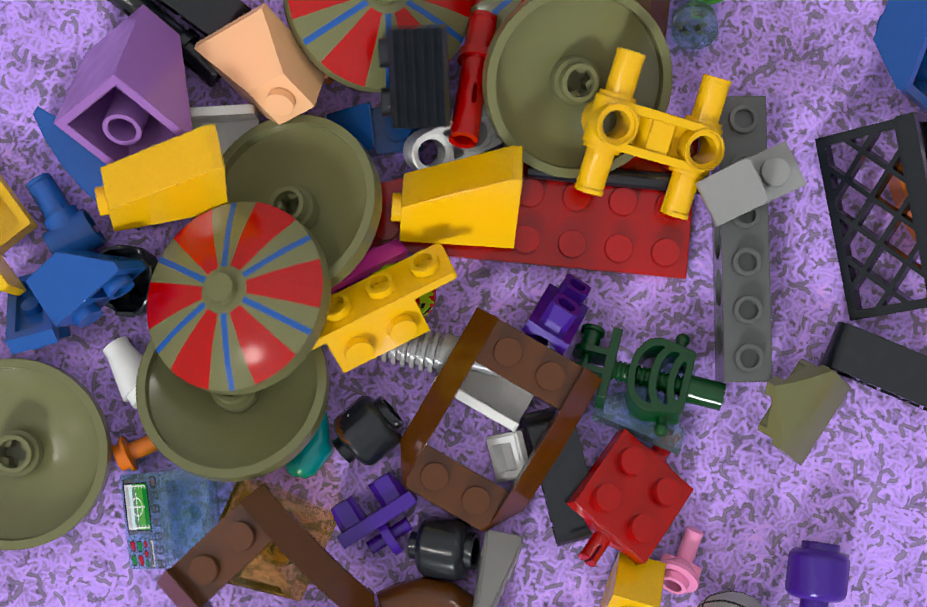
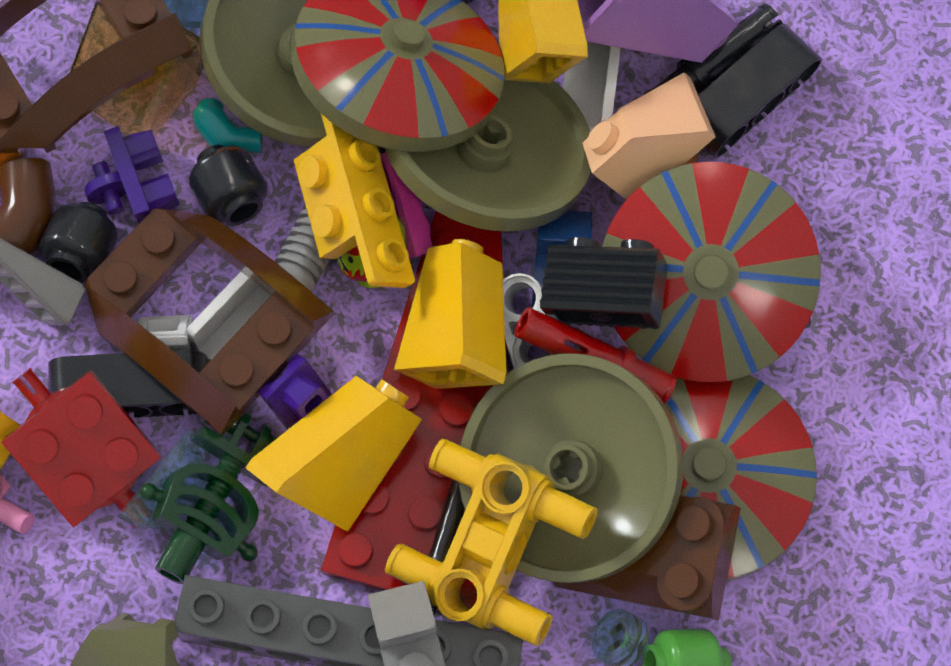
camera: 105 degrees right, 15 degrees down
(596, 278) = (339, 451): none -> yellow slope

